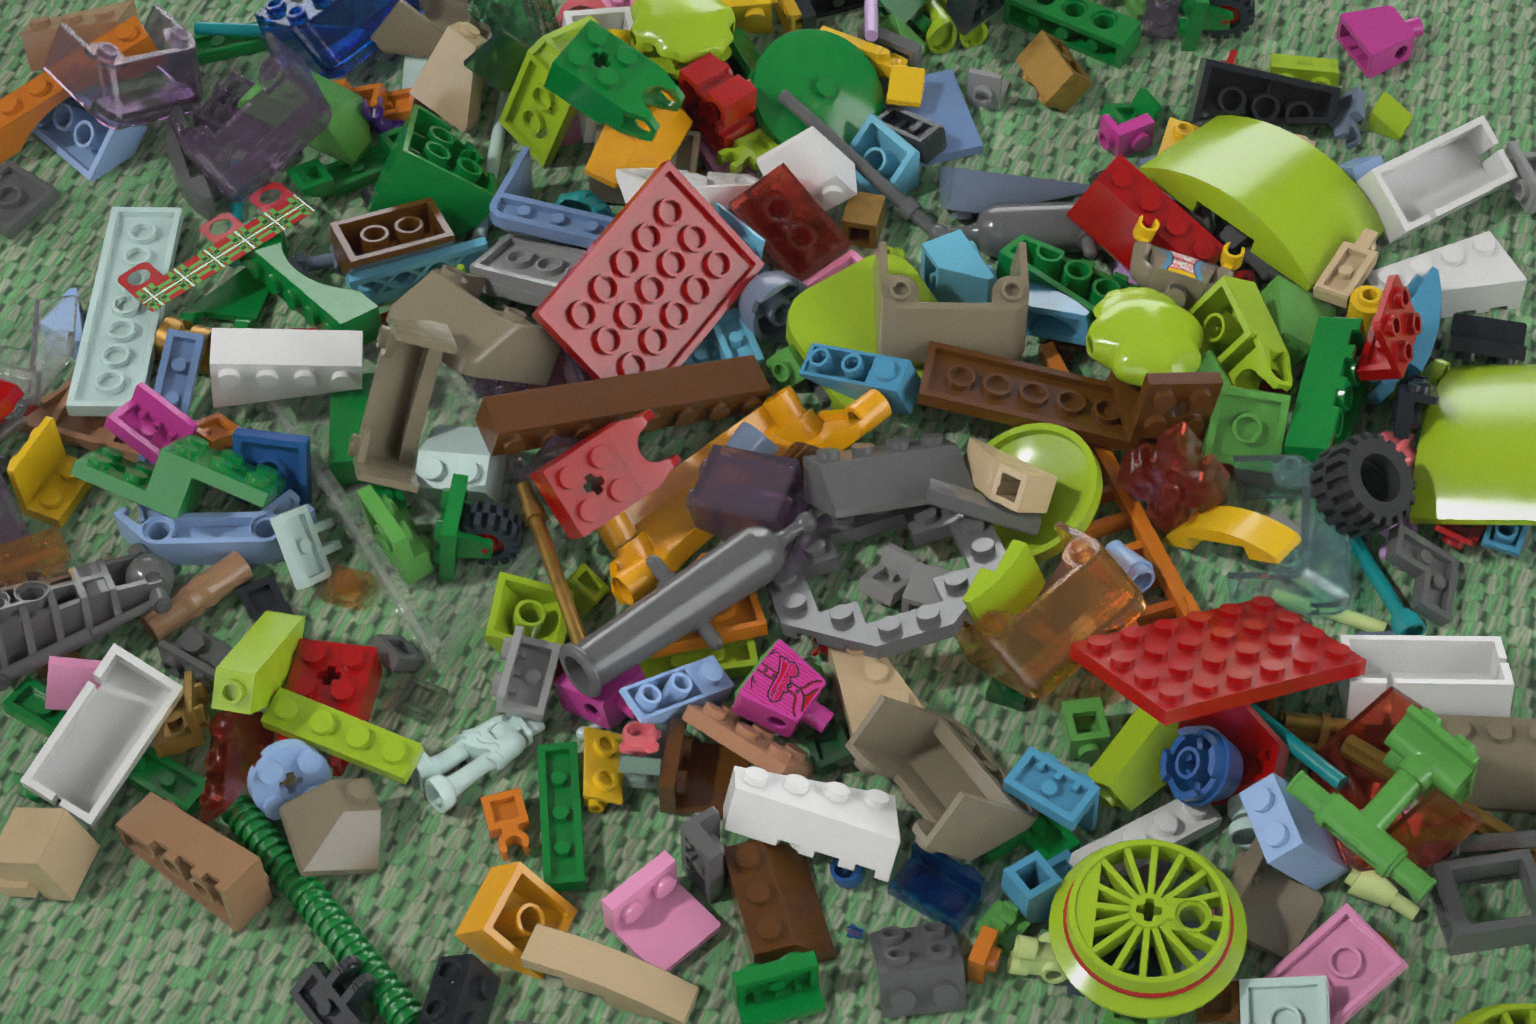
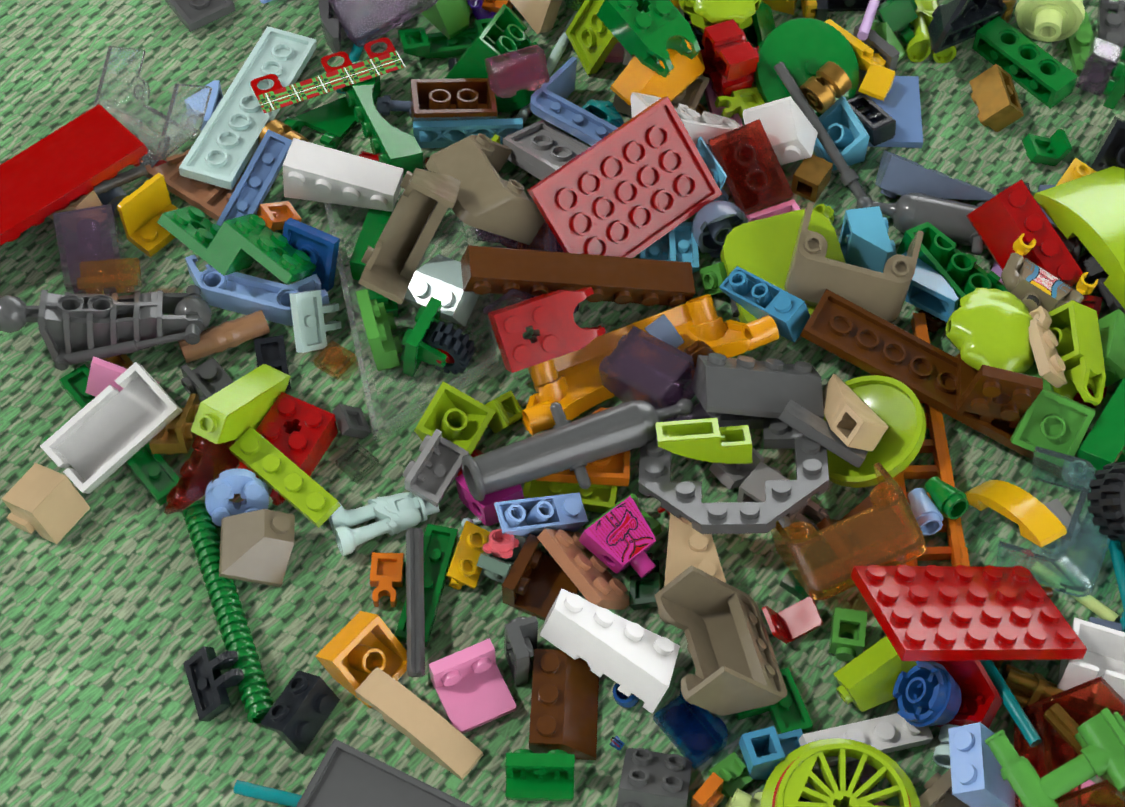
camera: 15 degrees right, 5 degrees up
(149, 422) = (230, 196): dark pink bracket -> none
(197, 860) = (151, 540): medium nougat wedge -> none
(464, 179) = (517, 71): none -> clear pink brick
(535, 518) = (484, 346): pearl gold bar -> none
(556, 838) = (415, 602): none -> dark grey axle
(846, 552) = (706, 440): none -> lime slope
(848, 105) = (829, 83): none -> pearl gold wheel
(986, 89) = (940, 99): light grey bracket -> none
(1009, 587) = (820, 507): lime slope -> none
(1018, 731) = (794, 620): none -> bracket
(1054, 790) = (803, 680): dark azure bracket -> none
(1126, 137) = (1037, 164): dark pink bracket -> none
(1151, 543) = (948, 499): none -> green cone
(1173, 477) = (982, 451): clear red brick -> none
(1207, 338) = (1044, 348): none -> tan hinge

